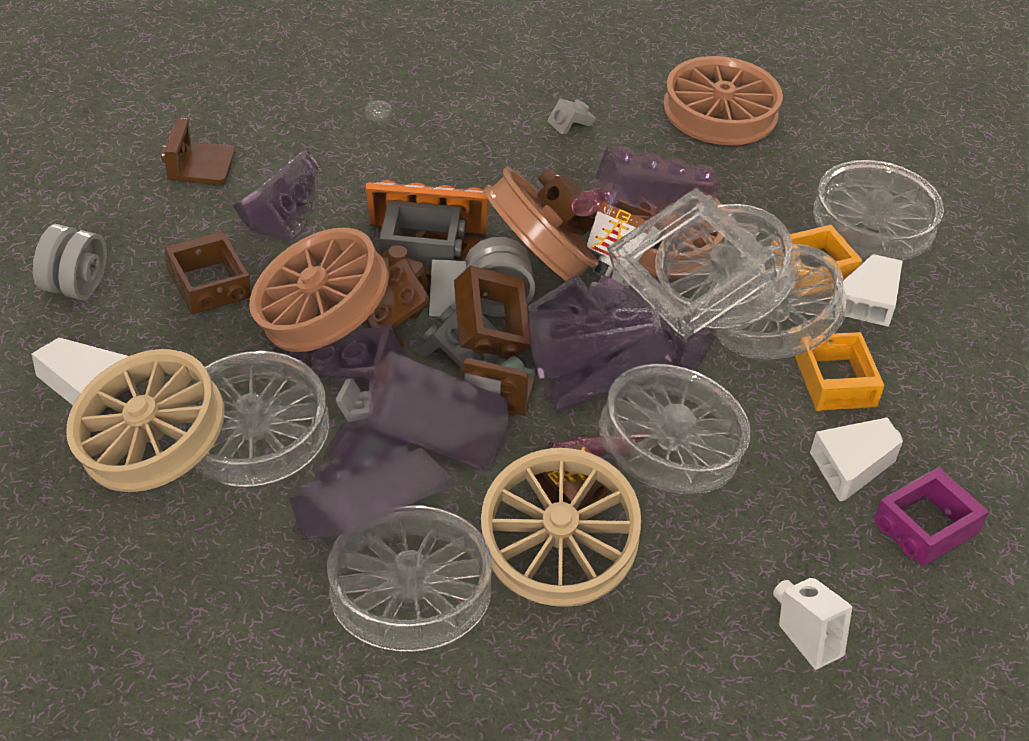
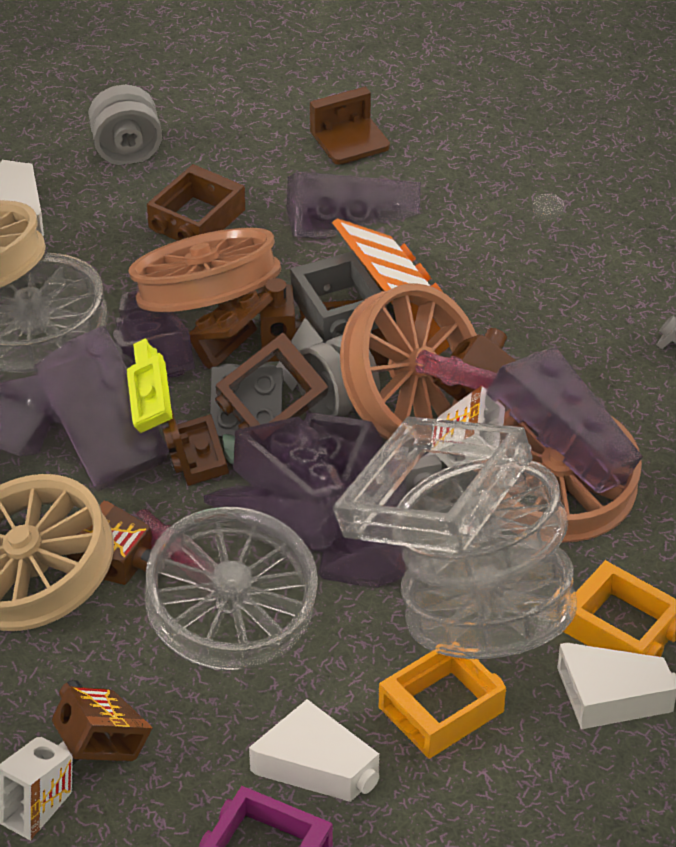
camera: 65 degrees right, 0 degrees up
(467, 363) = (148, 388): none -> neon yellow hinge
(770, 558) = (99, 724): none -> reddish brown torso

